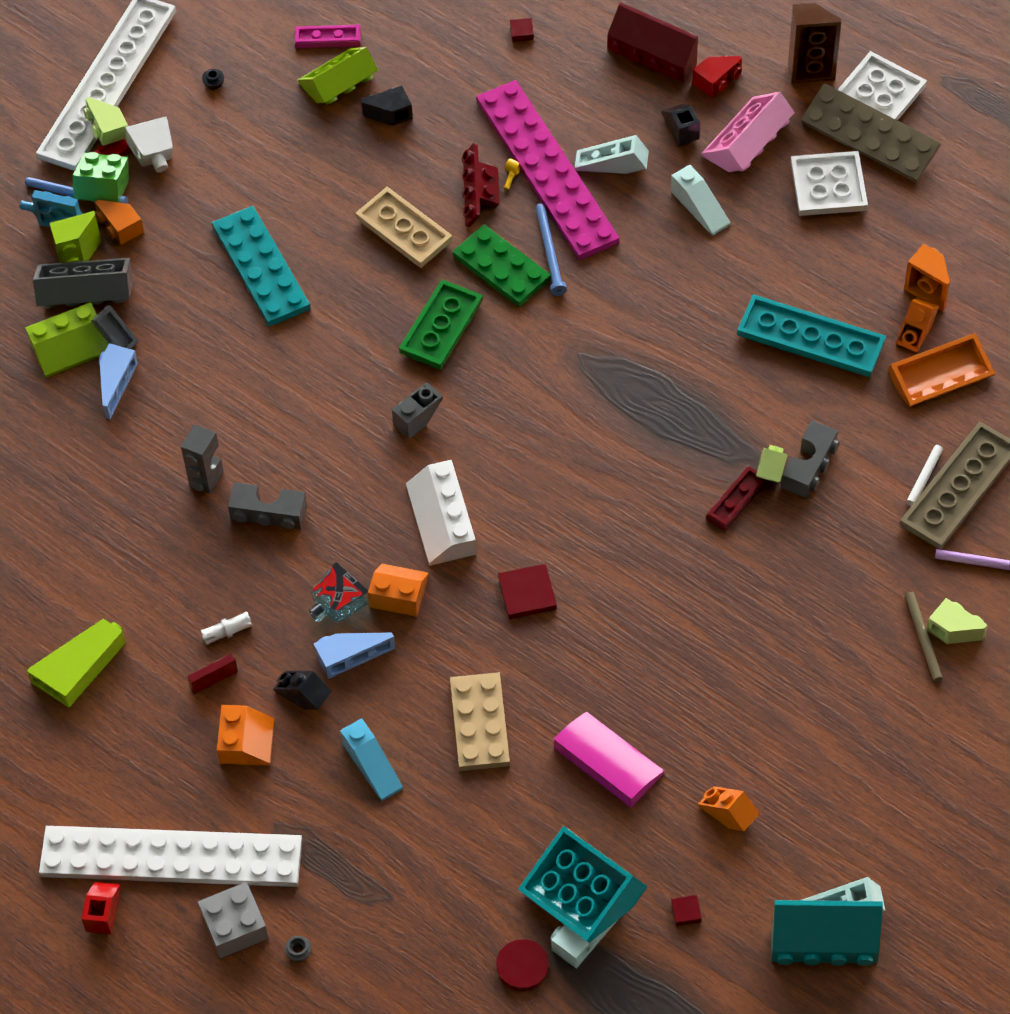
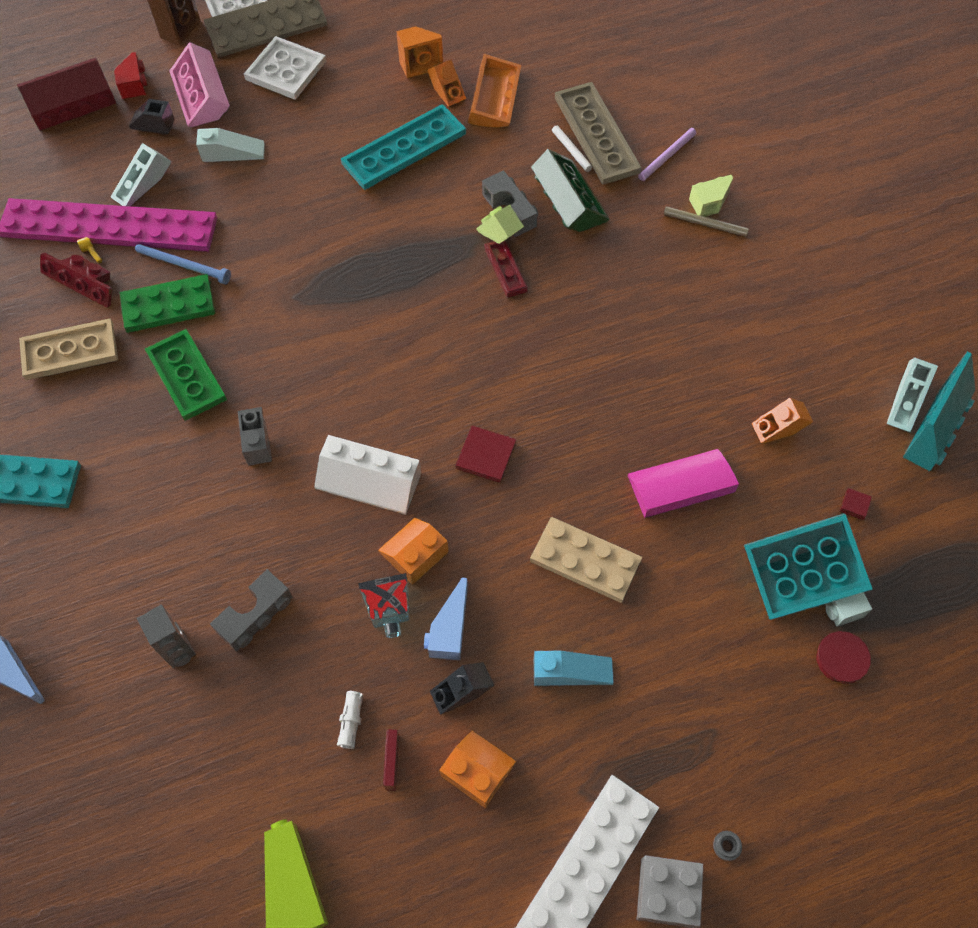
camera: 60 degrees left, 5 degrees up
(864, 501) = (568, 192): none -> slope

